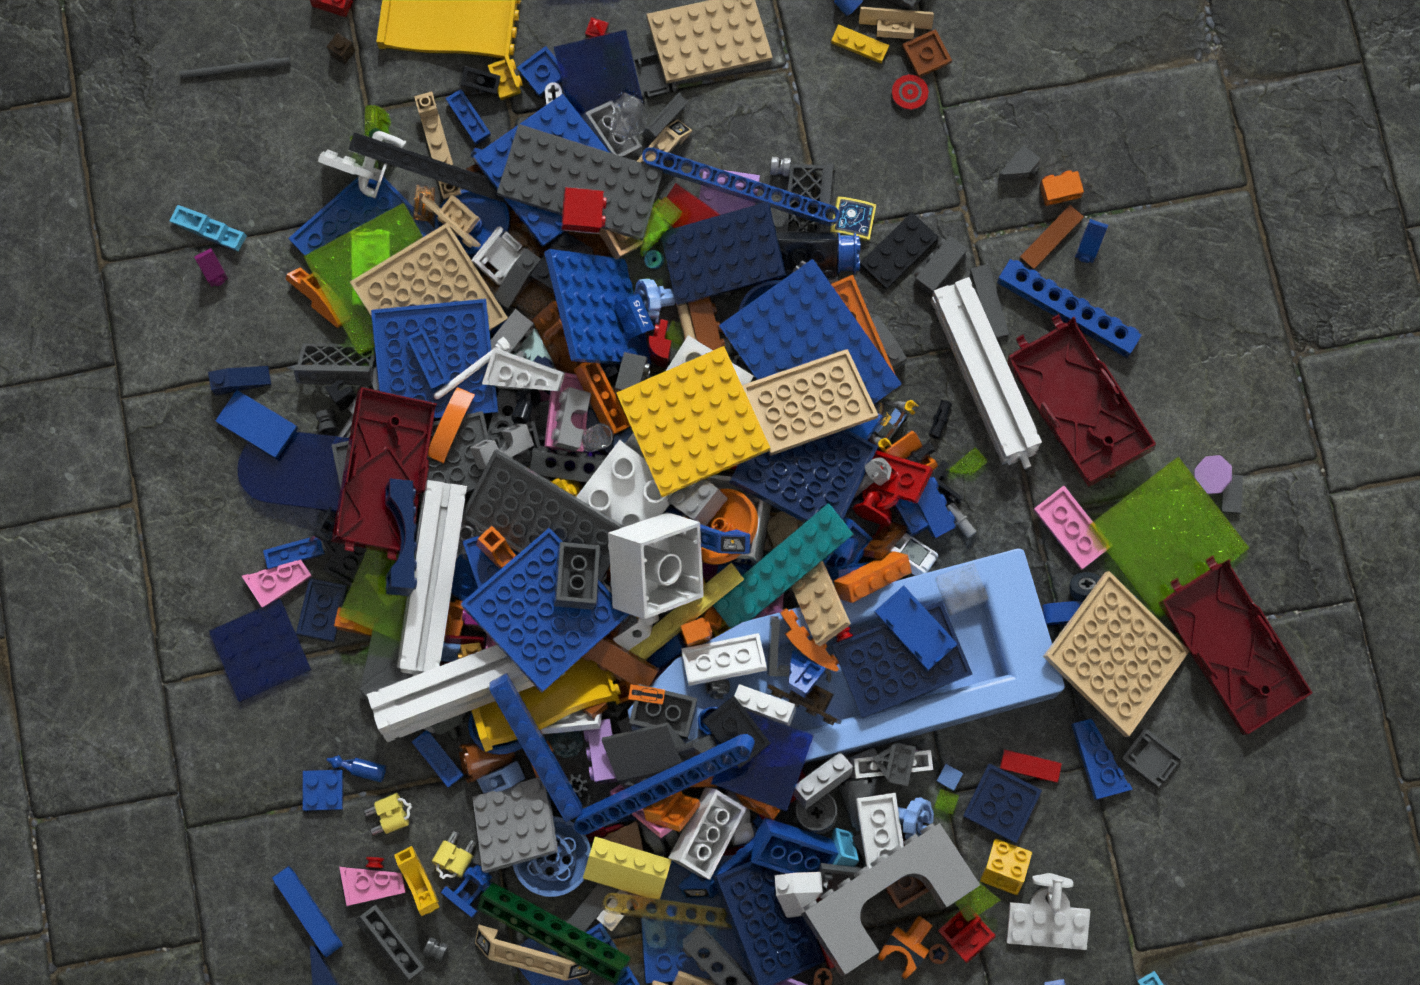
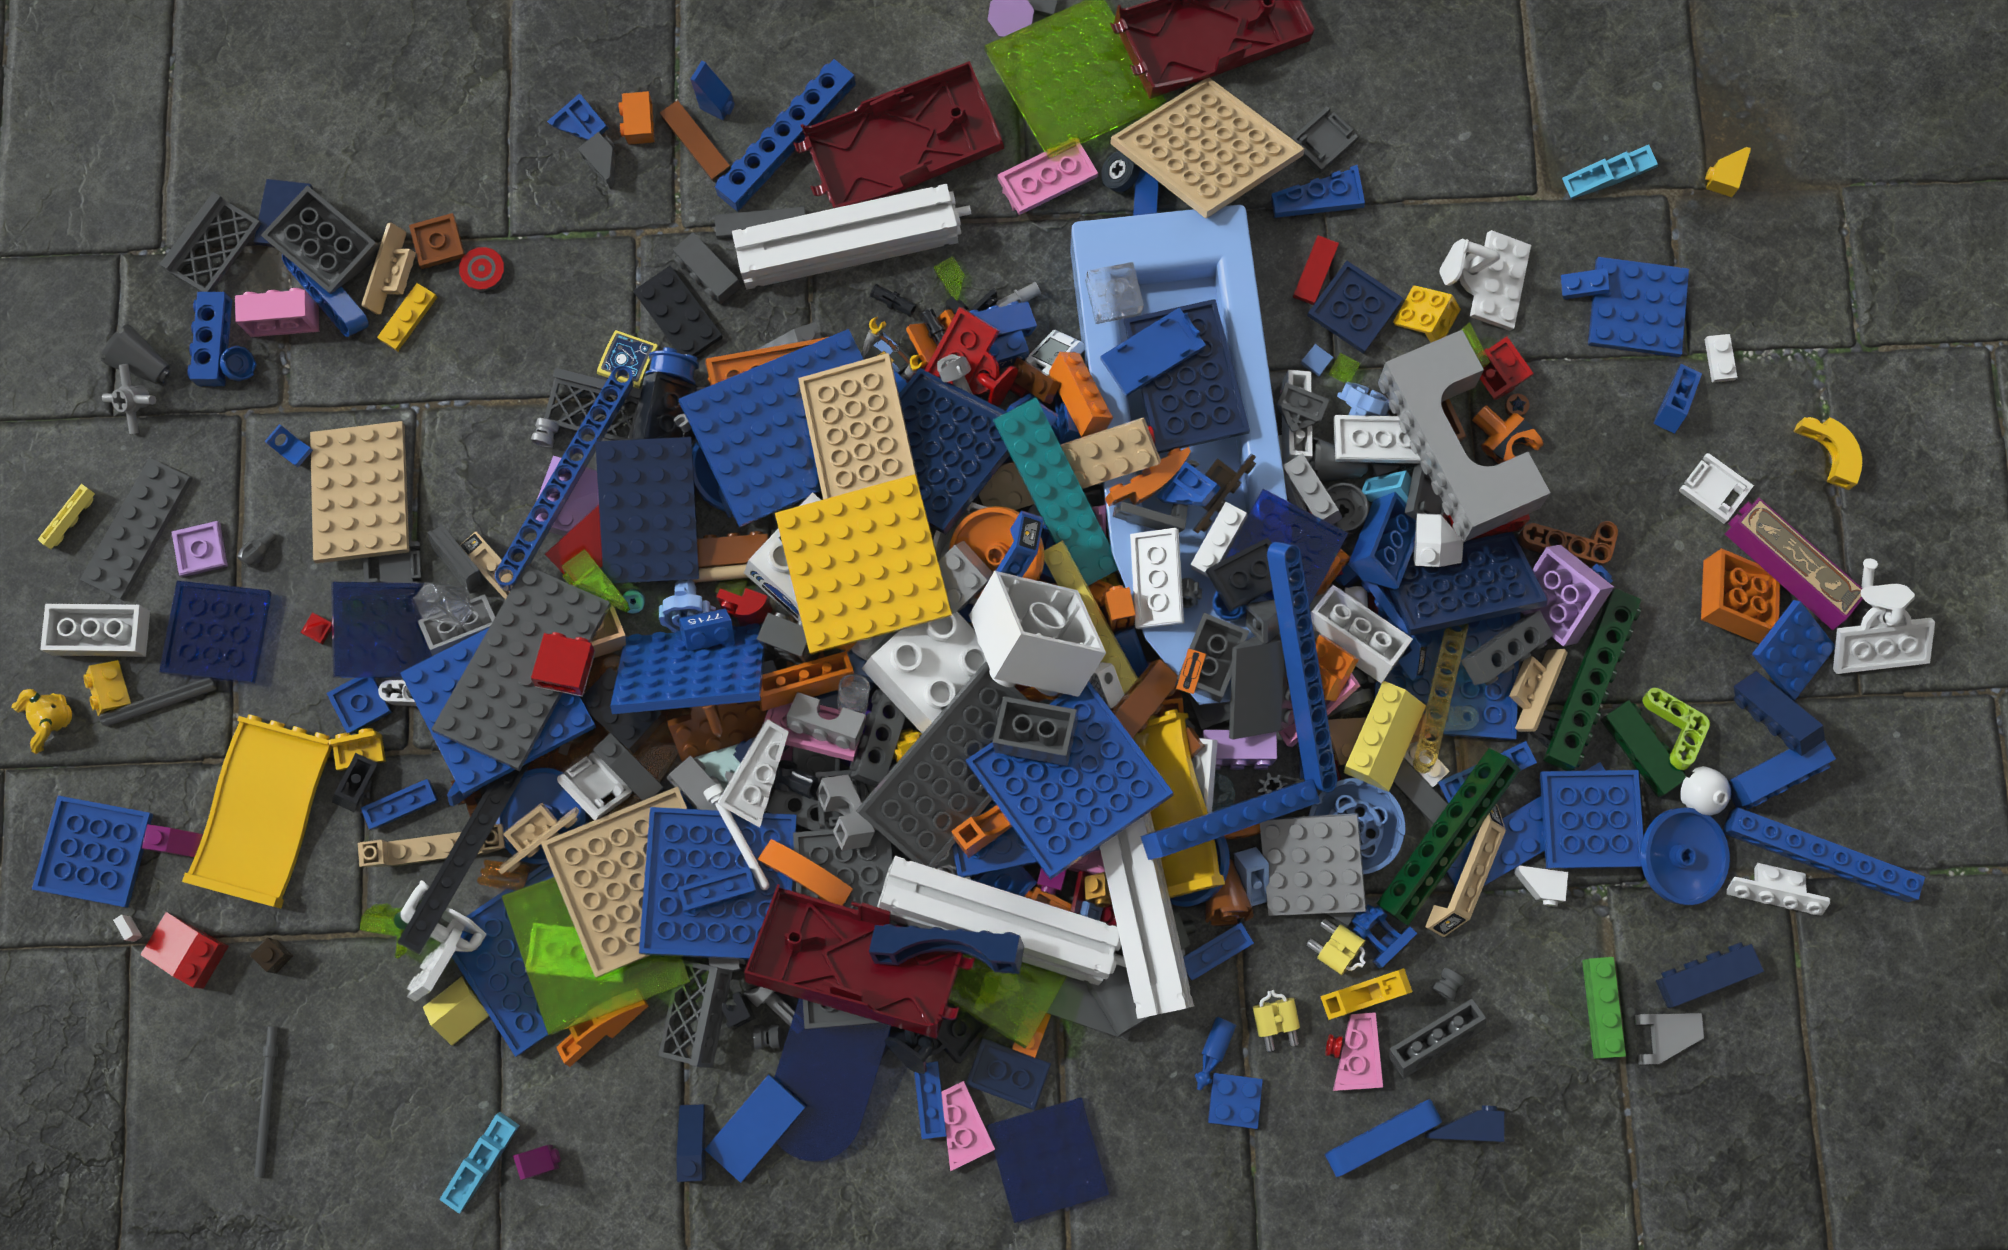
camera: 80 degrees left, 0 degrees up
(316, 188) = (455, 1011): none -> light yellow slope
(1052, 143) = (578, 119): none -> blue wing

